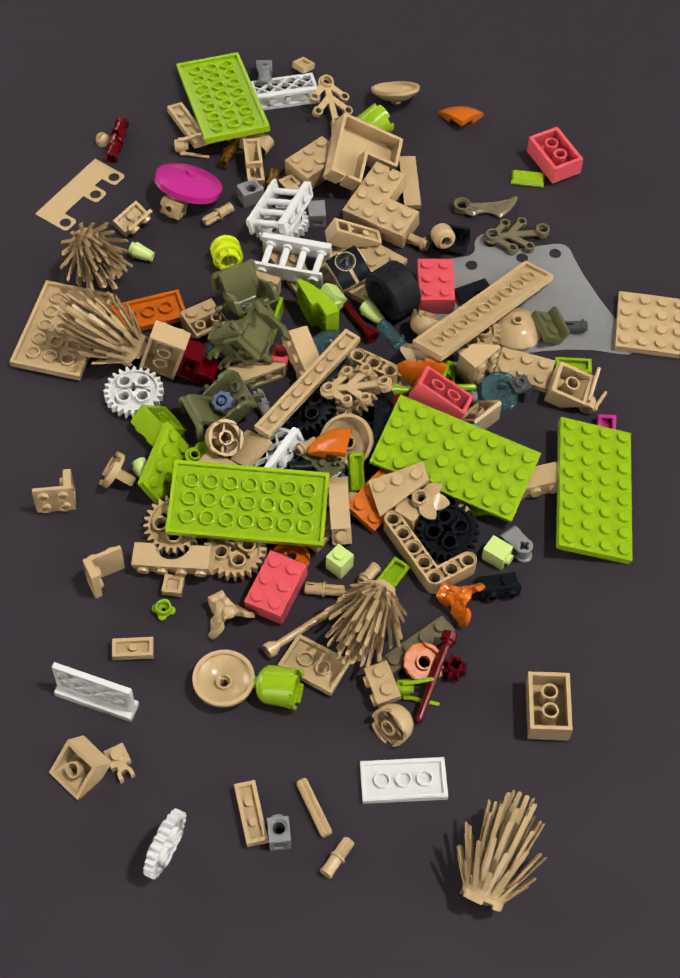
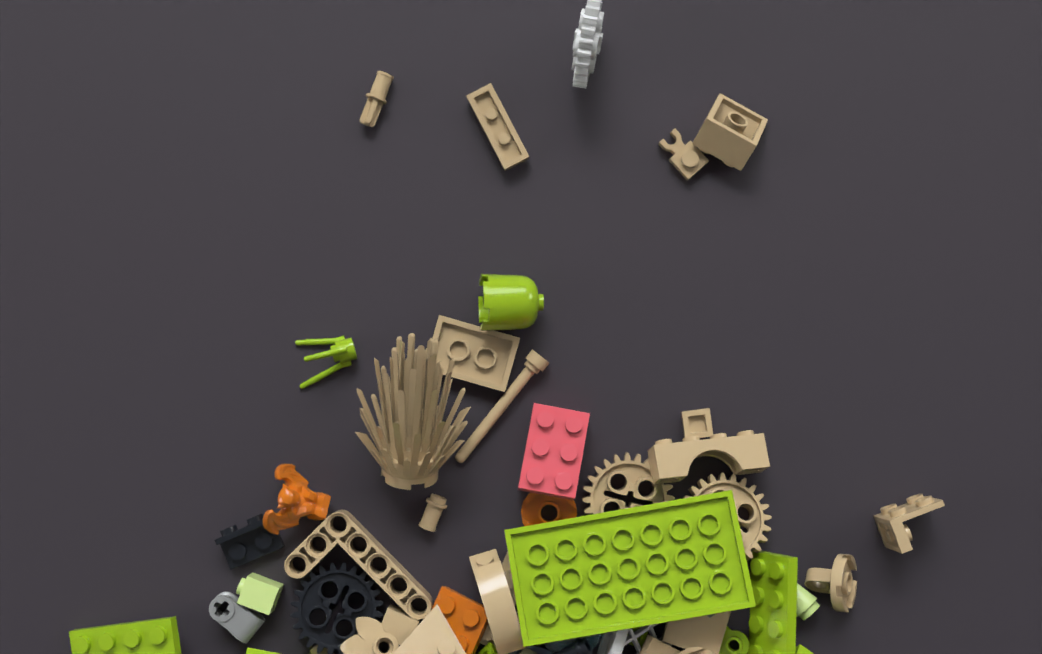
camera: 165 degrees right, 30 degrees up
(94, 692) = (746, 233): white fence -> none
(101, 565) = (803, 397): tan bracket -> none
(132, 648) = (719, 314): tan plate -> none
(163, 604) = (690, 385): lime plate -> none
(220, 668) = (589, 274): tan dish -> none
(223, 610) = (610, 396): tan animal -> none
(279, 841) = (451, 98): light grey brick -> none
(314, 808) = (421, 156): tan axle -> none
(322, 588) = (488, 472): tan axle -> none
(339, 561) = (477, 519): yellowish green brick -> none
(382, 684) = (371, 339): tan bracket -> none
(393, 723) = (345, 292): tan cylinder -> none
(394, 571) = (401, 519): lime tile -> none
(403, 780) = (318, 223): white tile -> none
(413, 654) = (342, 394): orange tile -> none
(429, 634) = (339, 423): dark tan plate -> none
(448, 639) = (298, 426): dark red piece -> none
(454, 668) = (276, 392): dark red gear -> none
(497, 854) = (175, 100): tan plant -> none
(548, 706) = (146, 367): tan brick -> none

